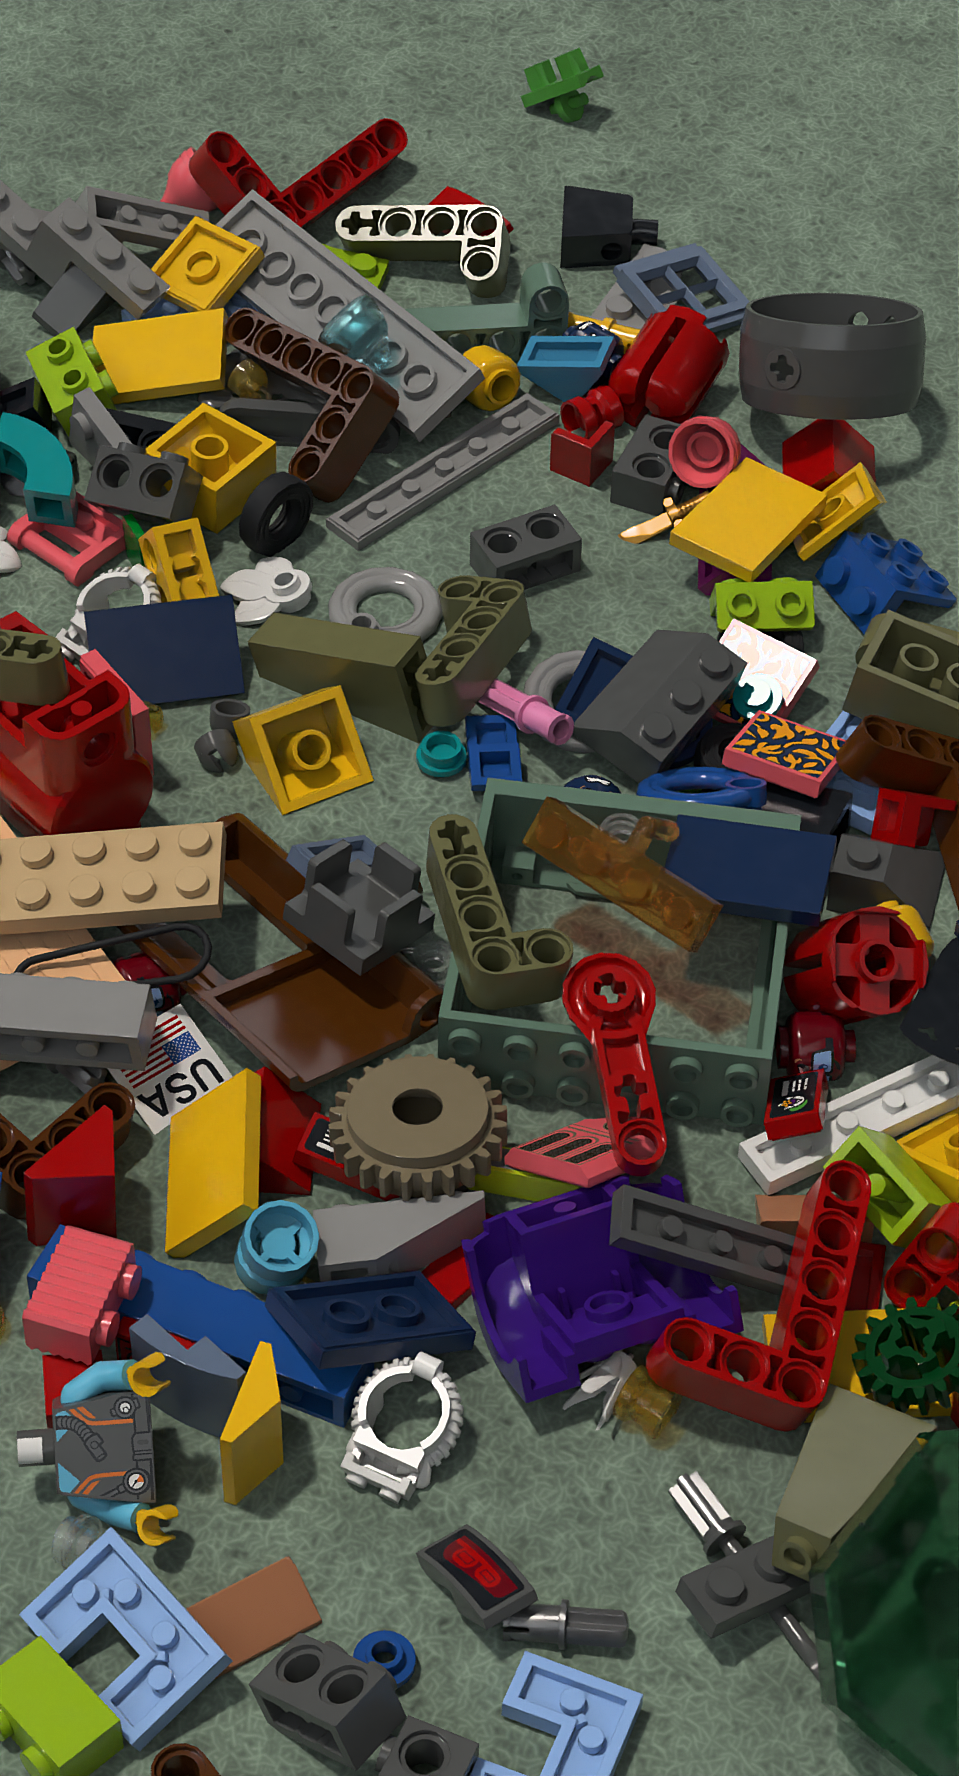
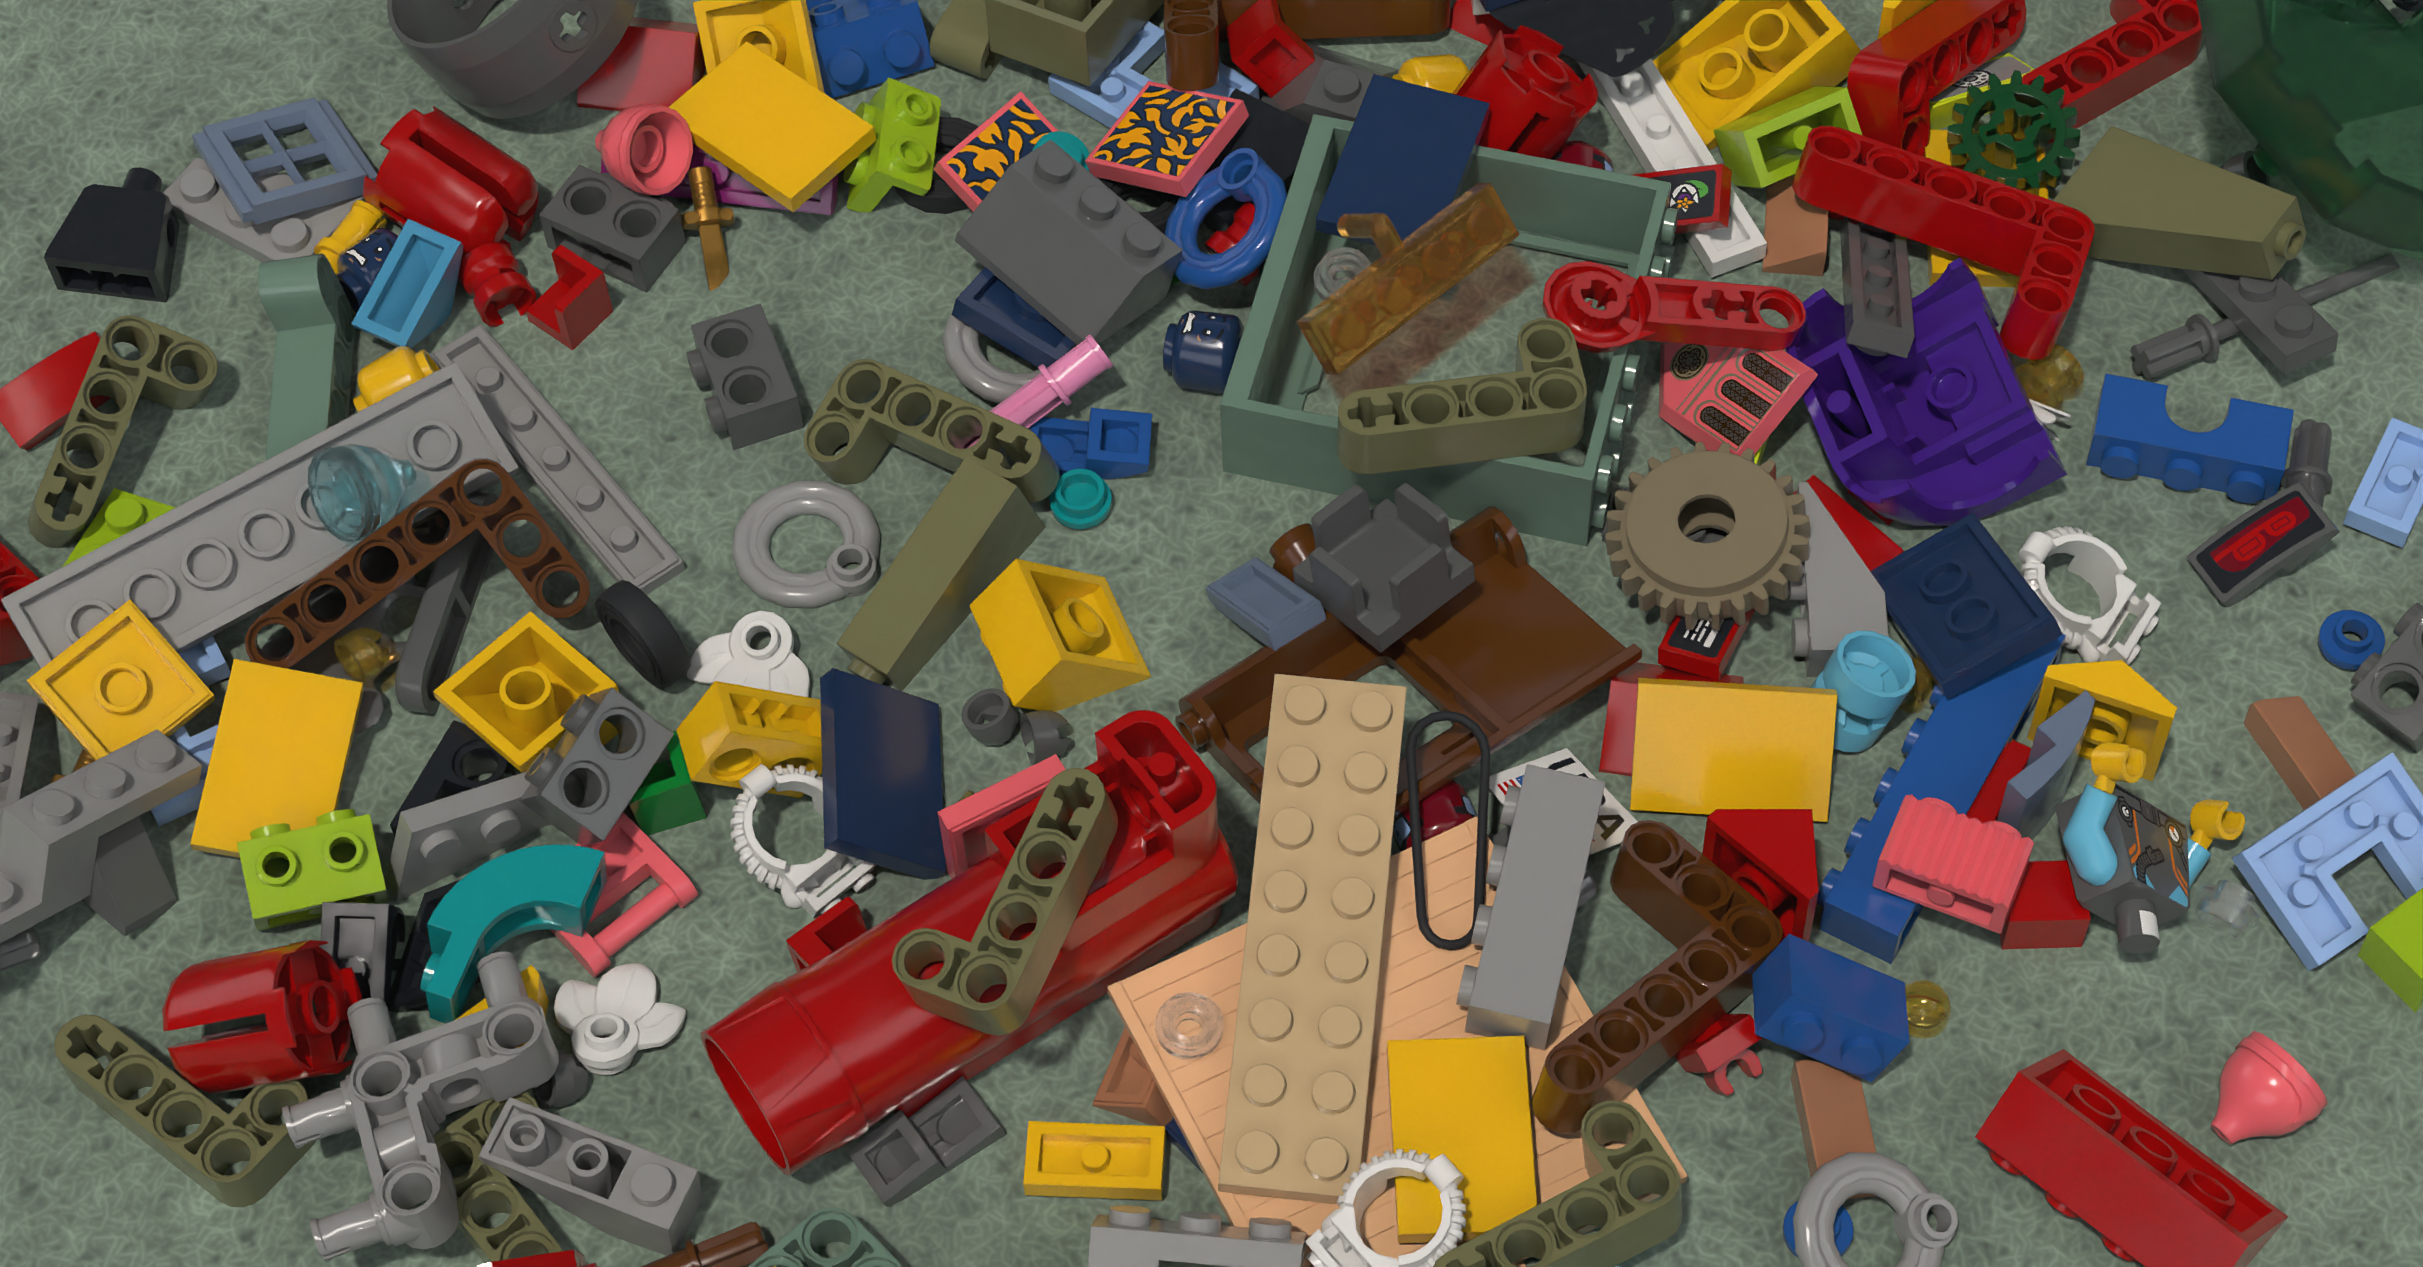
camera: 80 degrees left, 10 degrees up
(598, 1475) = (2140, 439): none -> blue arch

